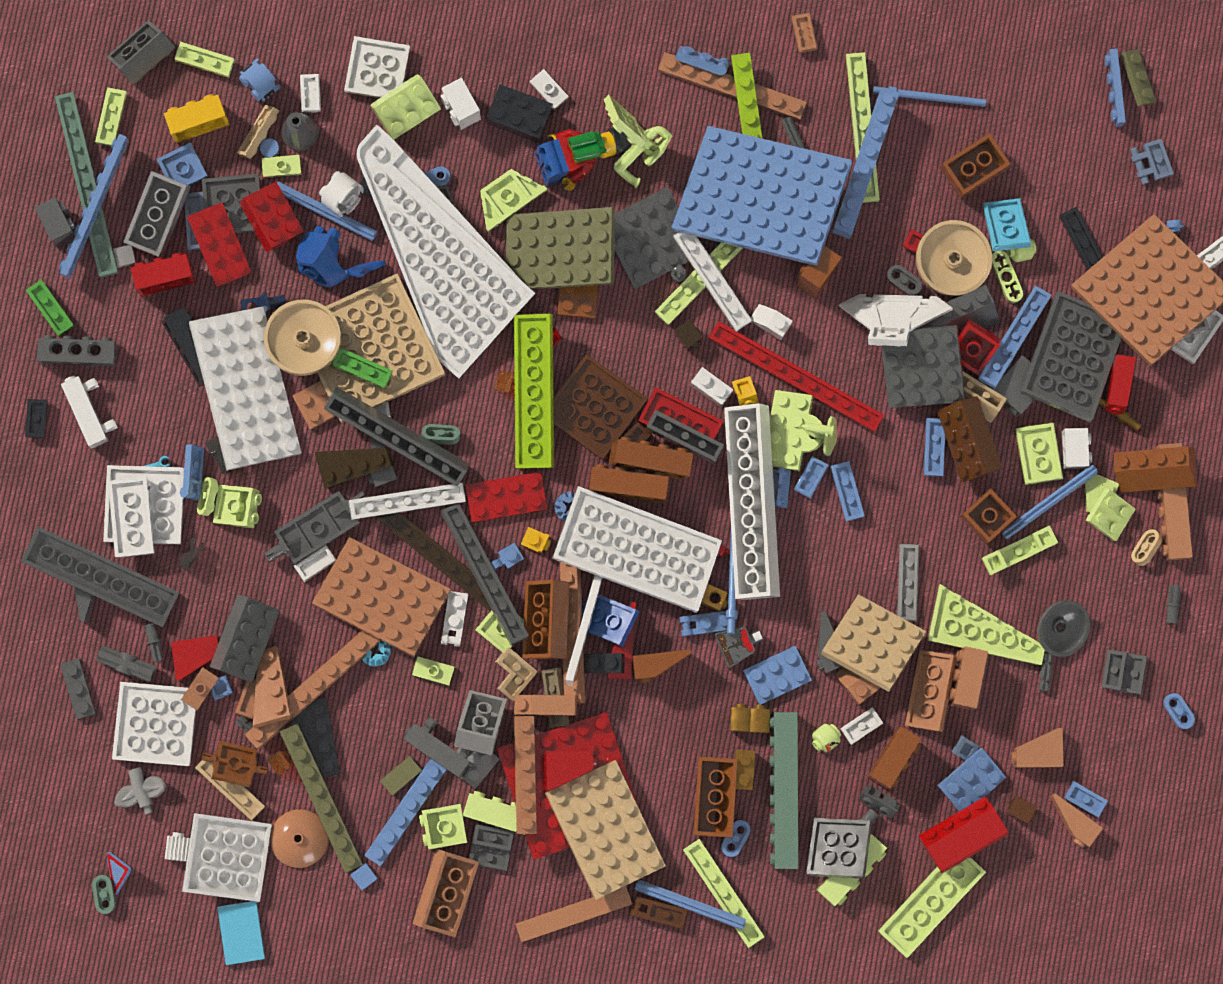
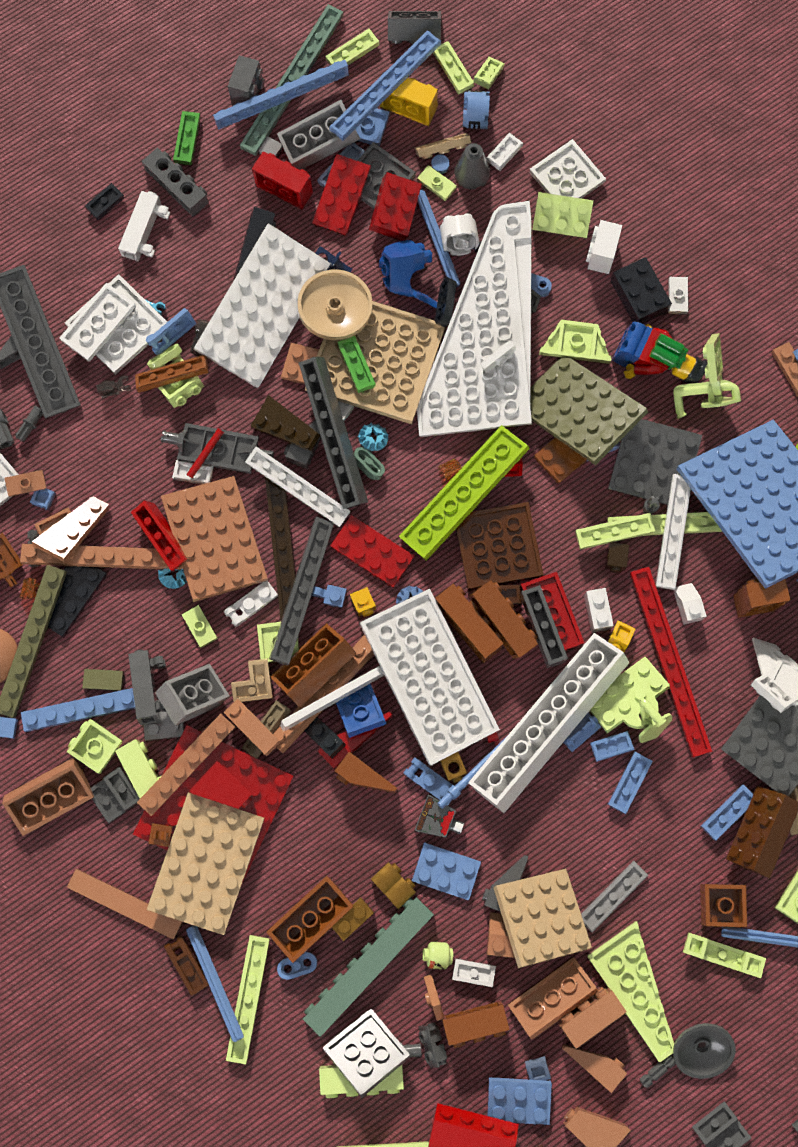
camera: 50 degrees right, 5 degrees down
(175, 129) = (385, 85): none -> medium blue tile
(192, 655) = (46, 456): red slope -> none
(227, 504) = (171, 373): none -> dark orange tile
(237, 39) = (488, 72): none -> yellowish green plate
(244, 638) = (89, 476): dark grey brick -> none
(312, 540) = (204, 454): none -> red bar
(340, 631) = (159, 533): none -> red slope
(386, 263) = (445, 302): none -> black beam
(425, 418) = (368, 442): none -> medium azure gear
(466, 266) = (498, 357): none -> white plate
(555, 840) = (160, 835): none -> dark orange tile
(670, 318) = (615, 531): none -> yellowish green plate
(849, 768) = (432, 997): none -> nougat plate
(1009, 705) = (600, 1066): none -> nougat slope

